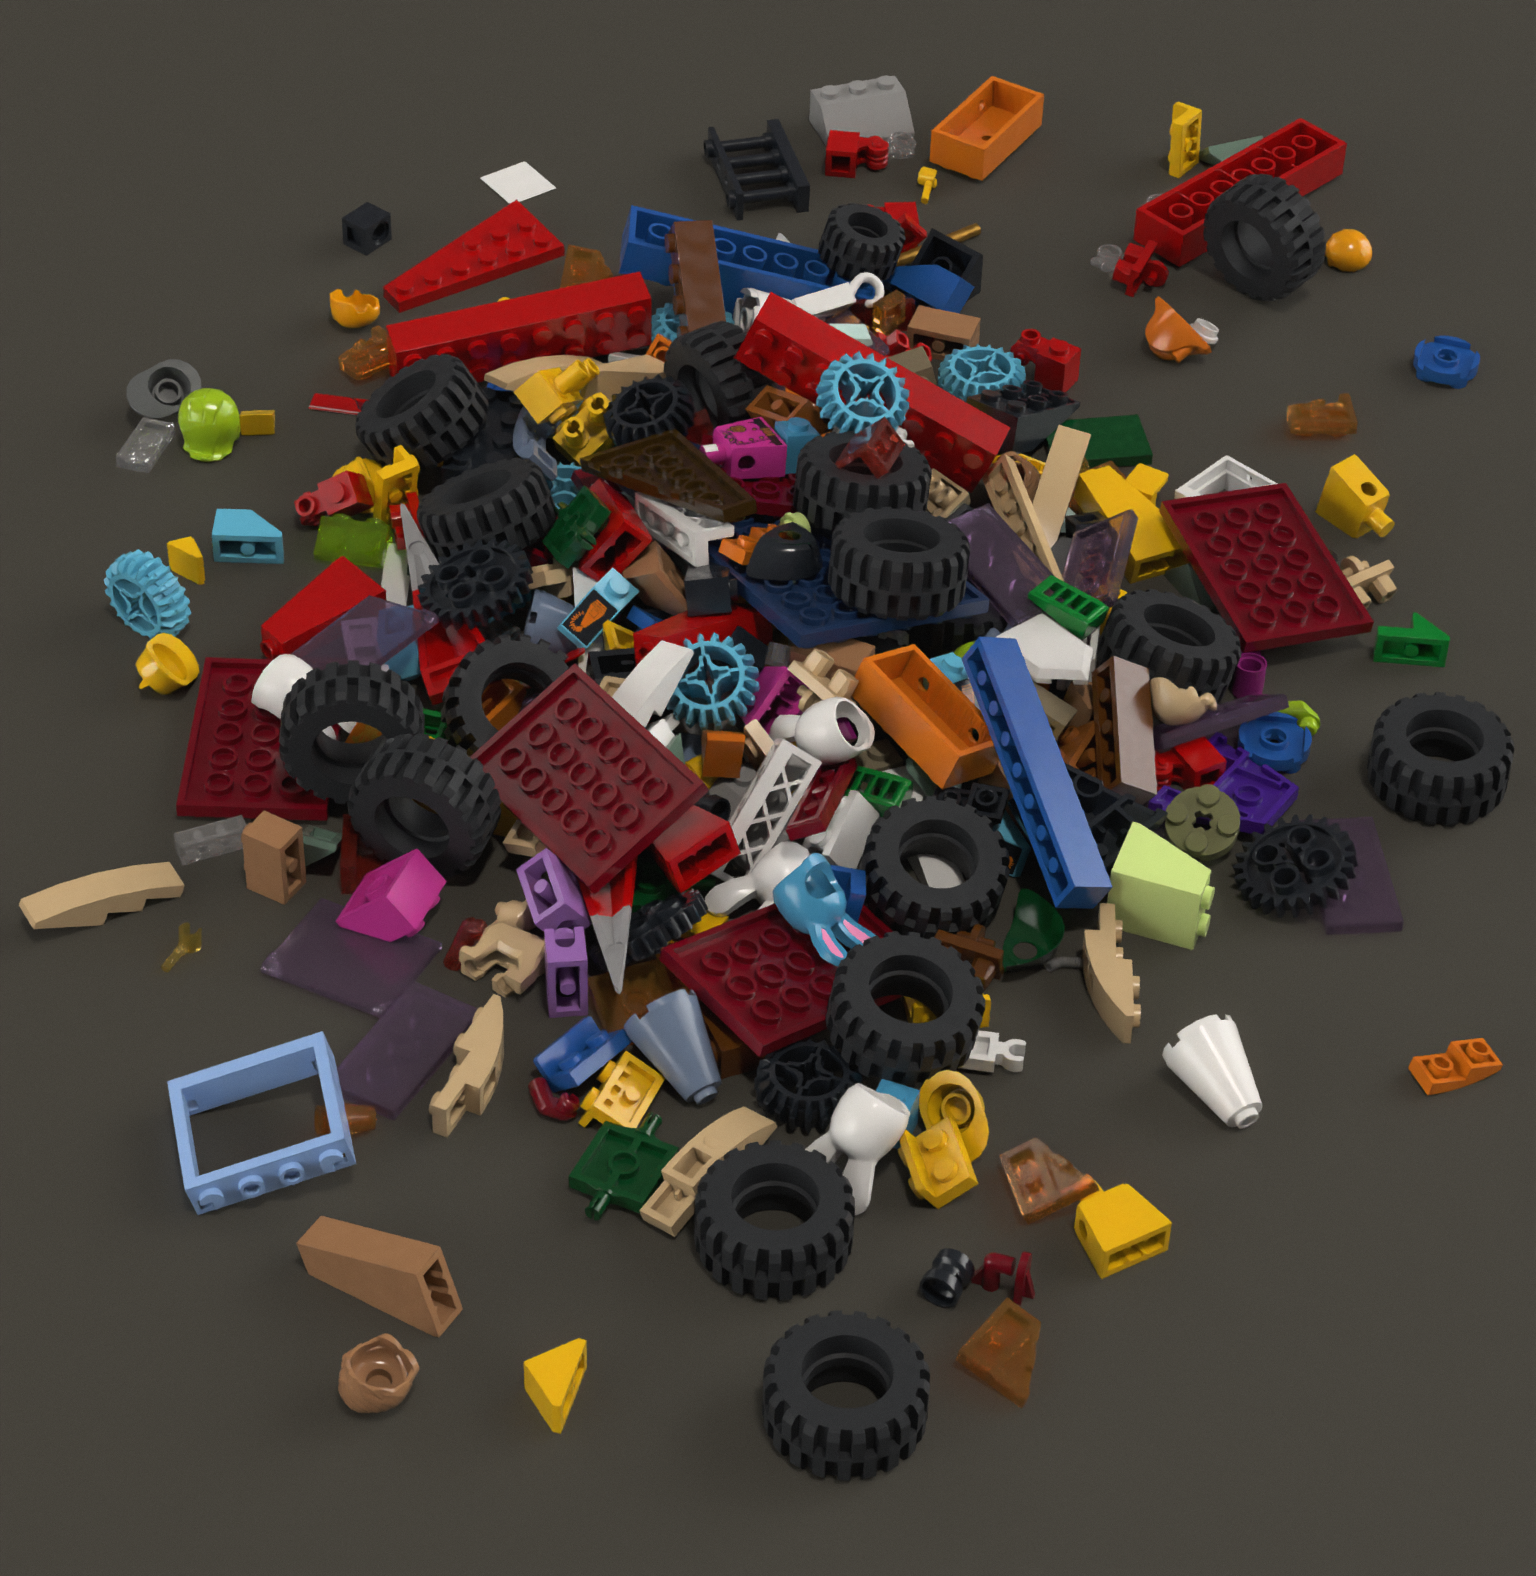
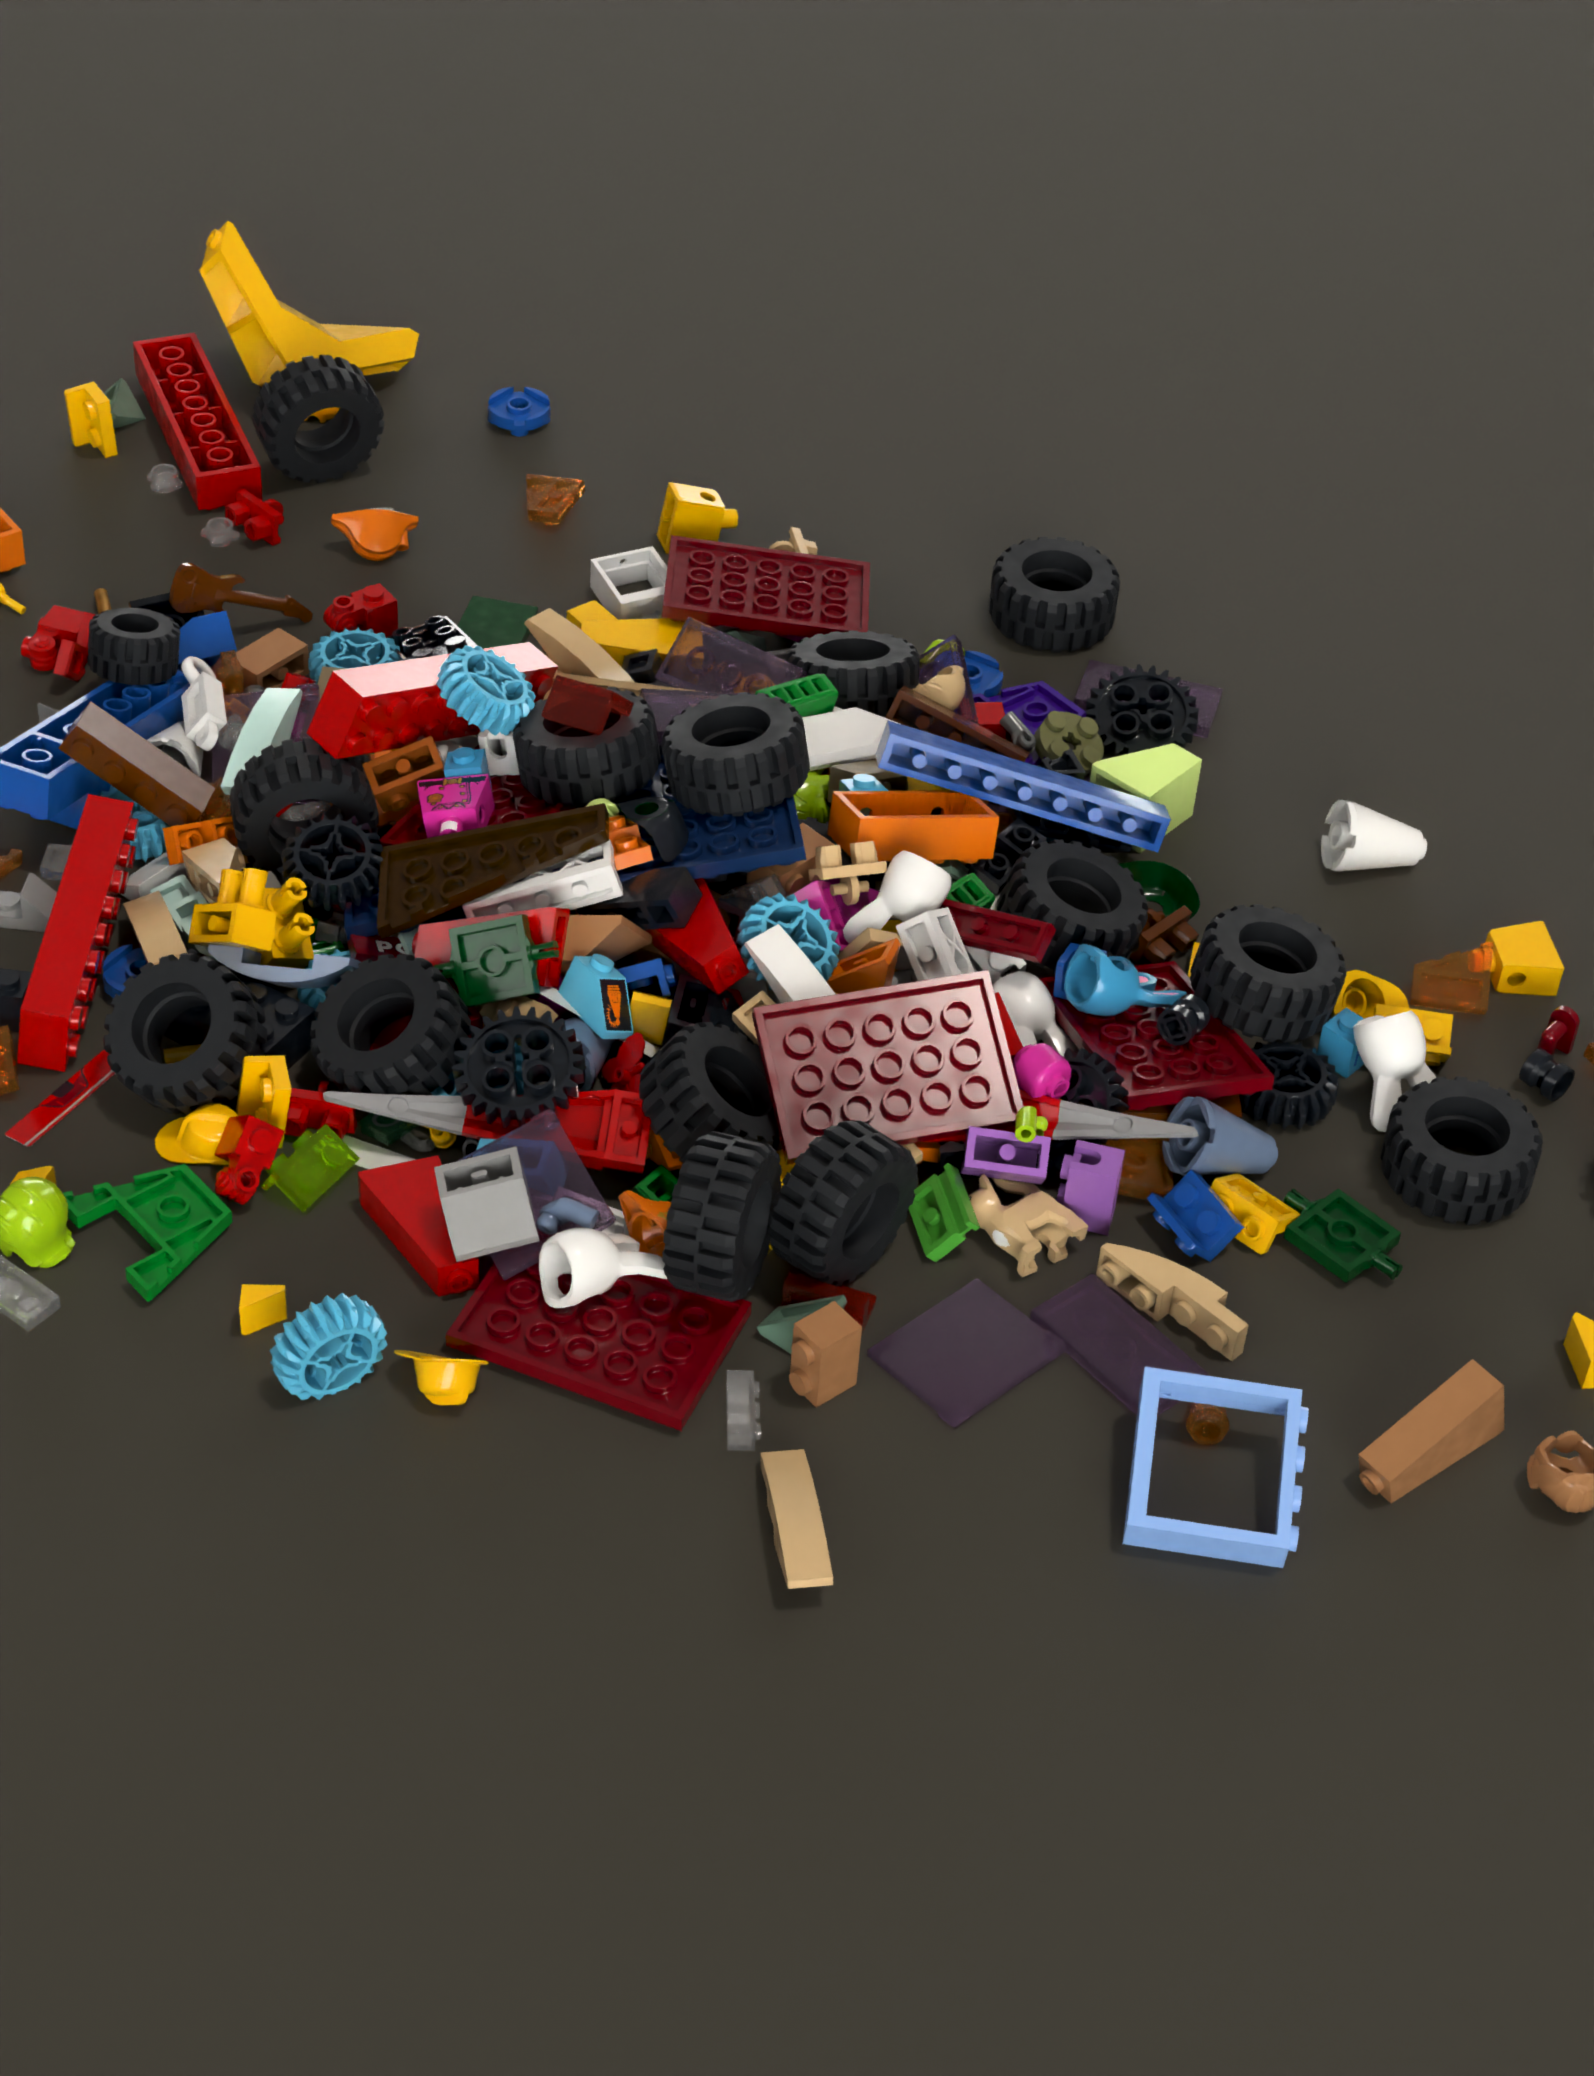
camera: 70 degrees left, 0 degrees up
(186, 944) = (887, 1474): clear yellow hand -> none
(245, 538) = (249, 1249): medium azure slope -> none
(265, 487) = (168, 1210): none -> green wing
(316, 615) = (486, 1204): none -> light grey slope
(325, 655) = (564, 1211): none -> sand blue arm
(394, 898) = (917, 1288): dark pink slope -> none
(467, 933) = (986, 1260): clear red arm -> none
(478, 903) = (942, 1213): none -> bright green plate
(560, 1108) = (1237, 1263): dark red arm -> none
(572, 880) = (1029, 1124): none -> lime arm
(654, 882) = (1042, 1071): none -> dark pink head
(675, 1198) = (1375, 1172): tan slope -> none
(790, 962) = (1183, 1019): none -> black wheel
(966, 251) = (198, 590): none -> reddish brown piece
(1110, 976) = (1225, 867): tan slope -> none
(1188, 778) = (1019, 732): none -> dark grey arm
(1381, 184) = (273, 333): none -> yellow panel
(1418, 645) = (887, 558): green slope -> none
(1460, 1066) = (1393, 724): orange slope -> none

